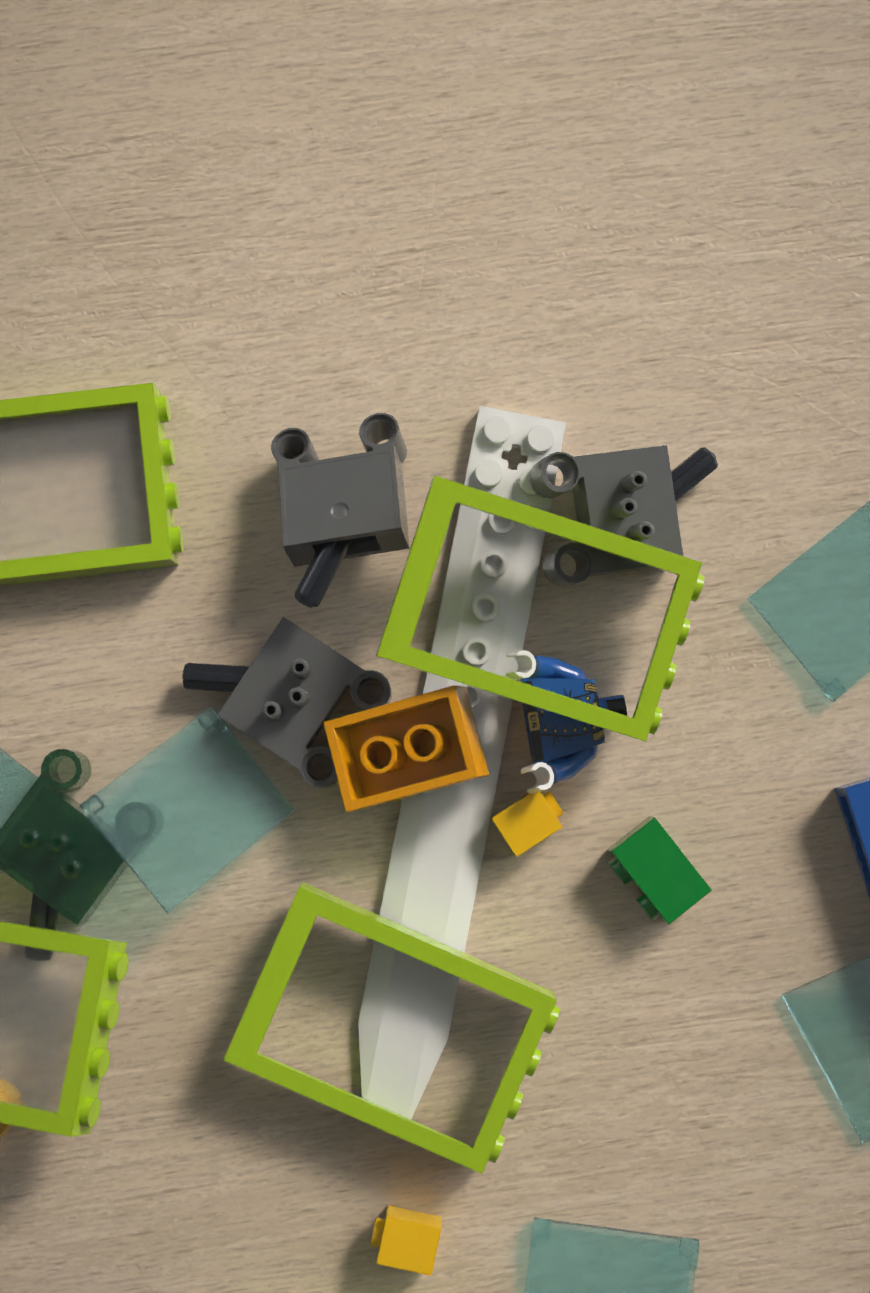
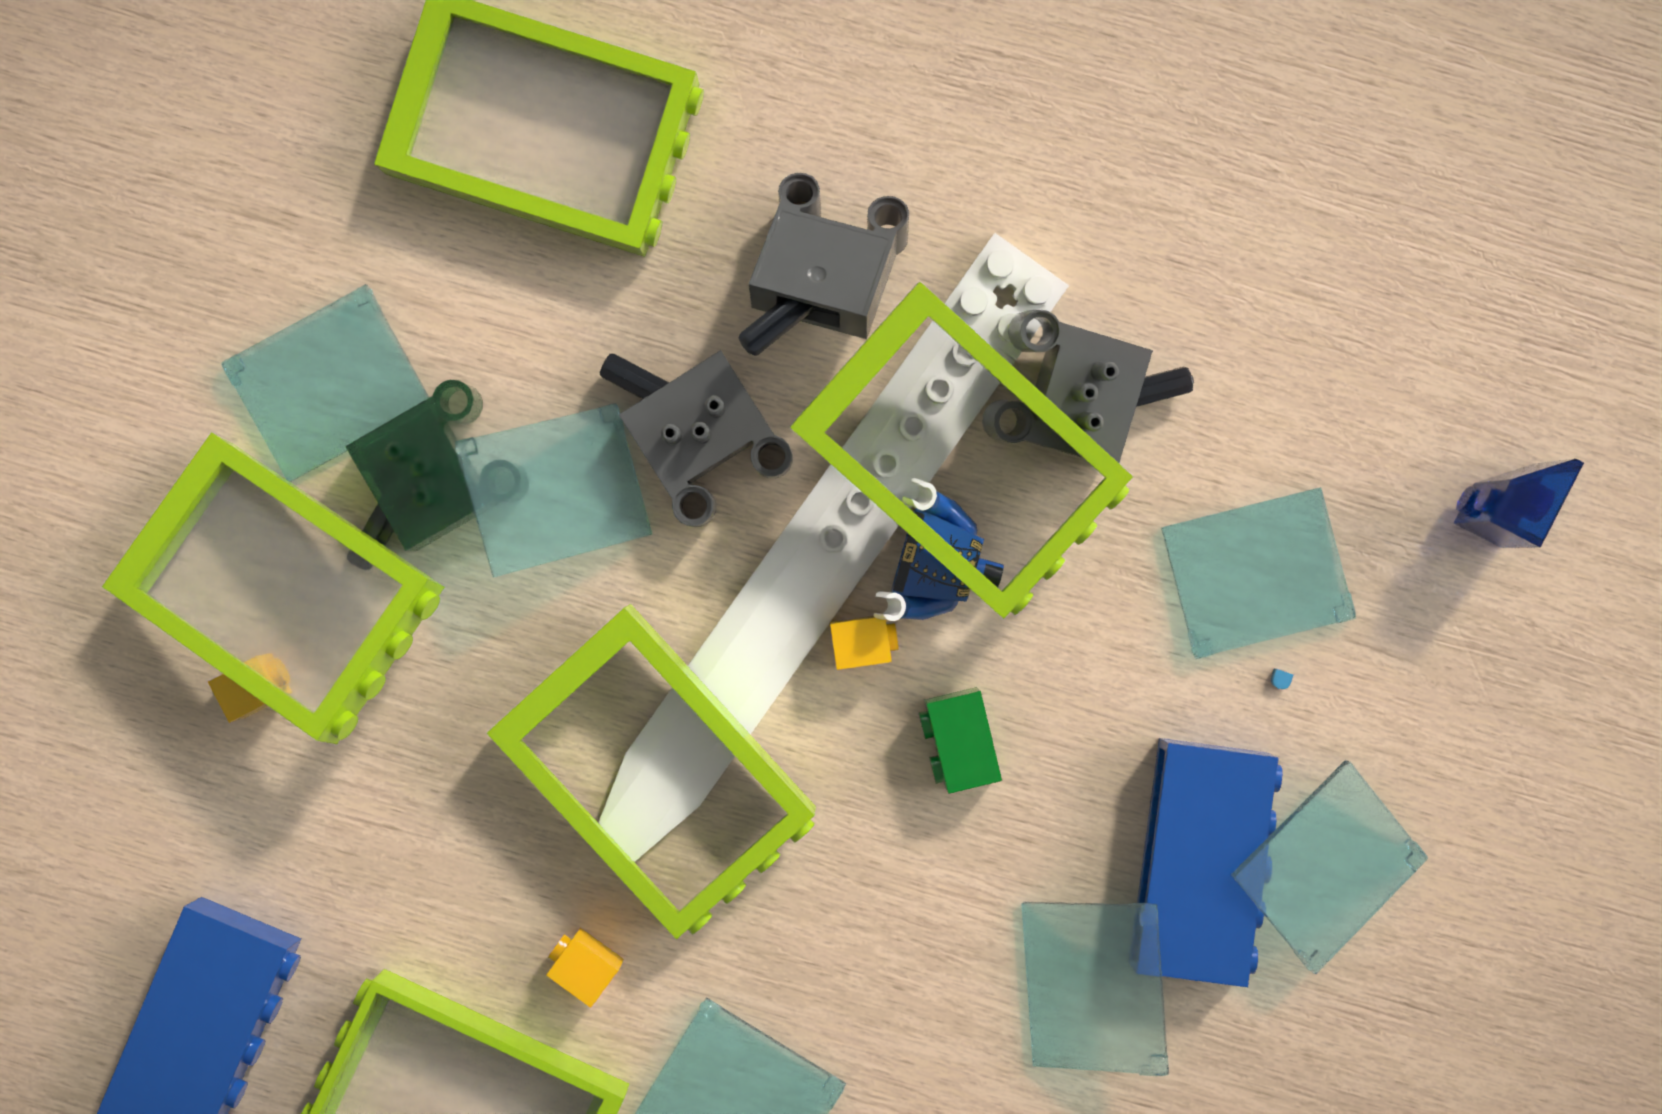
camera: 25 degrees right, 5 degrees up
(406, 748) = (780, 524): light orange brick -> none

